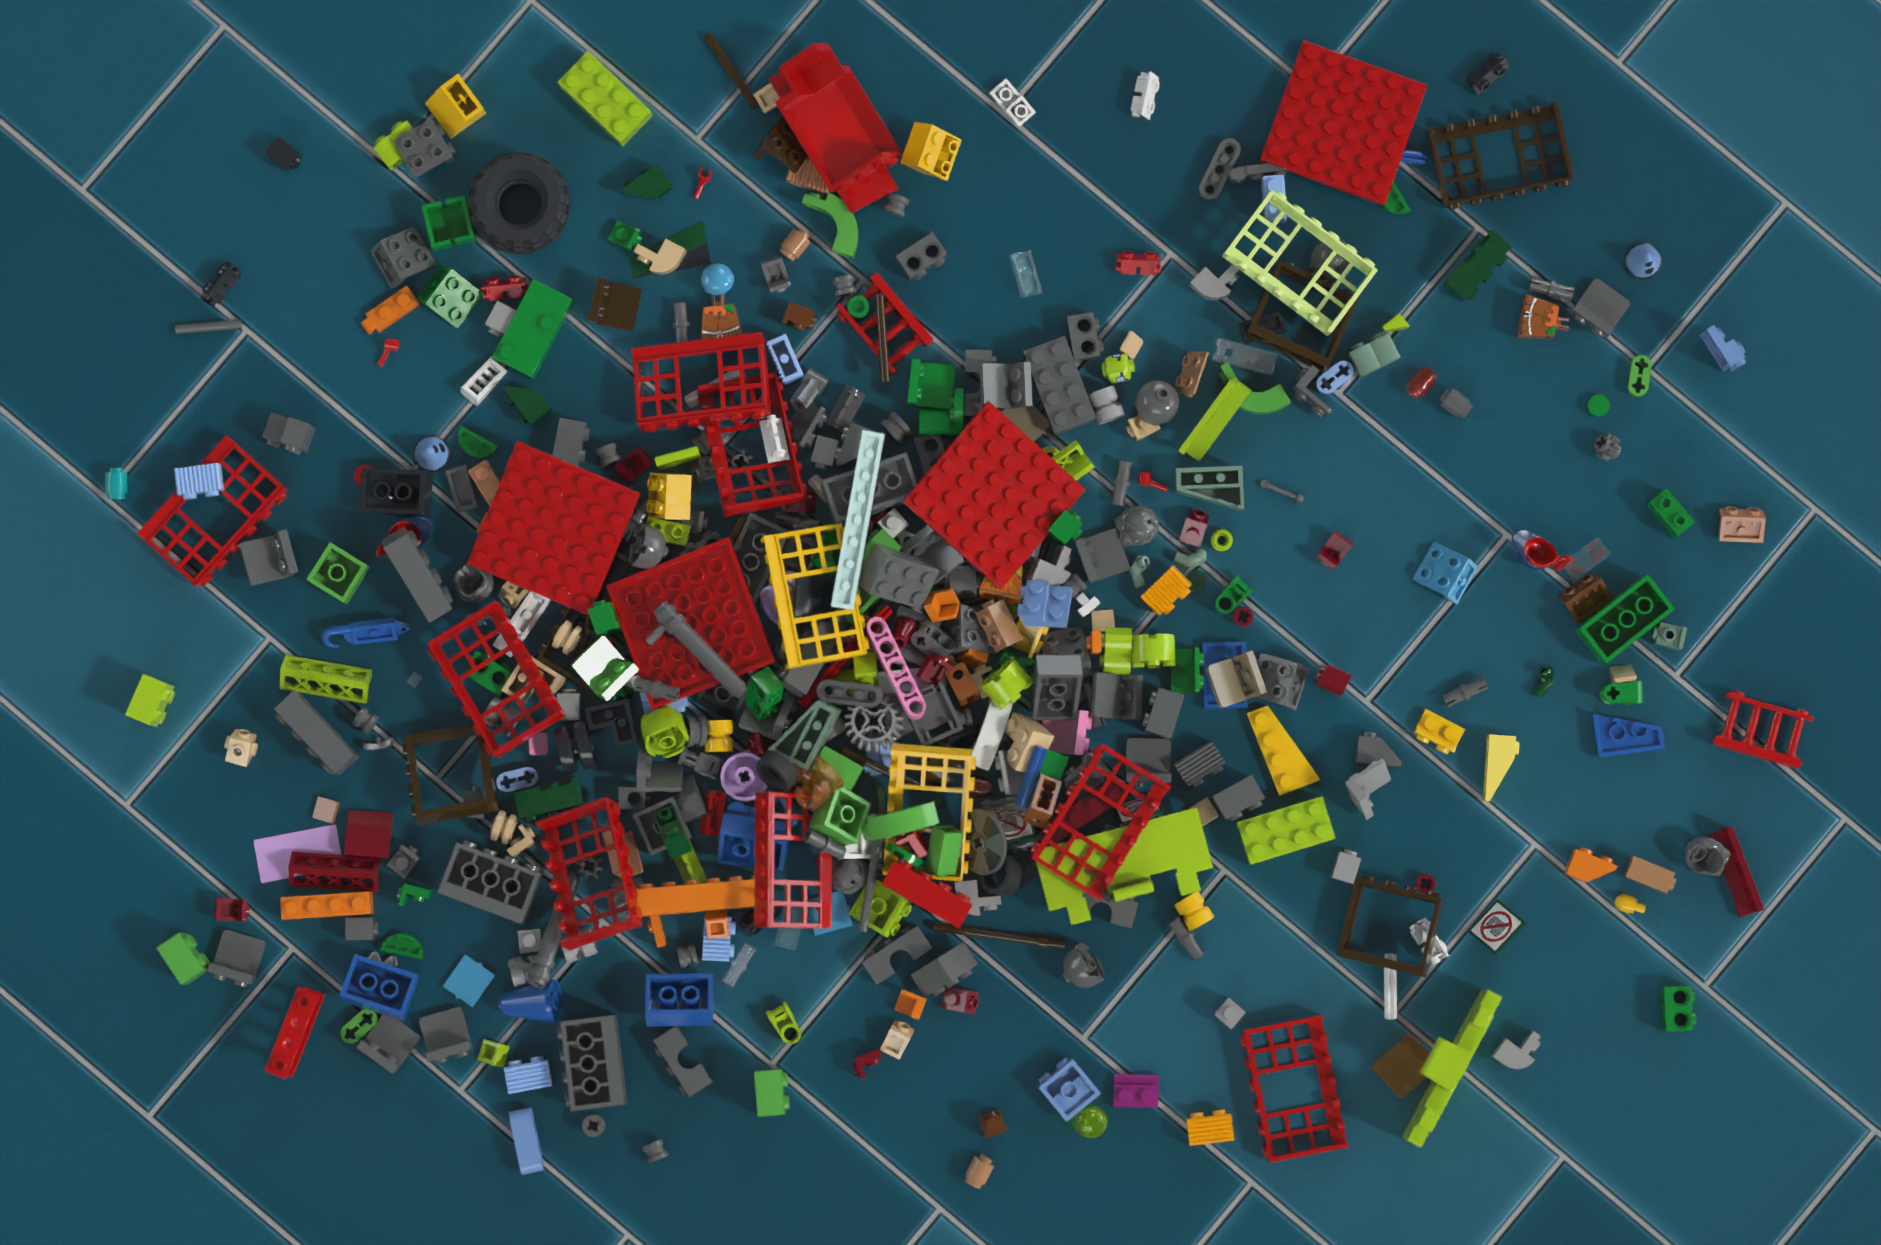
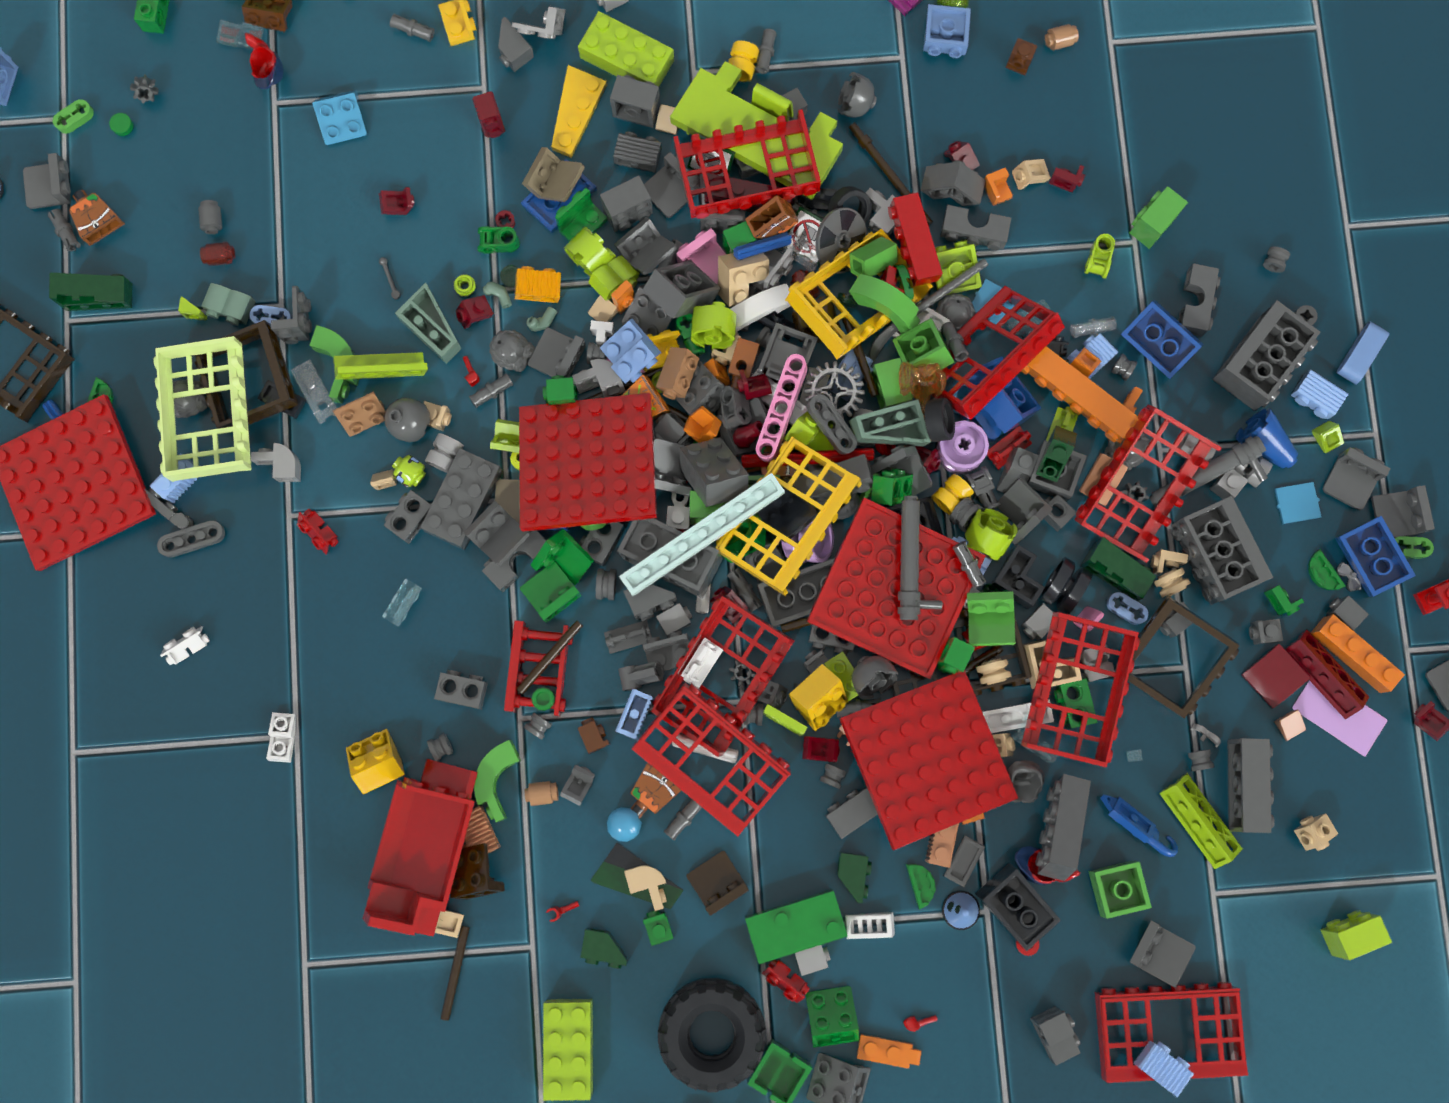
camera: 135 degrees left, 5 degrees down
(1282, 680) = (522, 151): dark grey bracket -> none

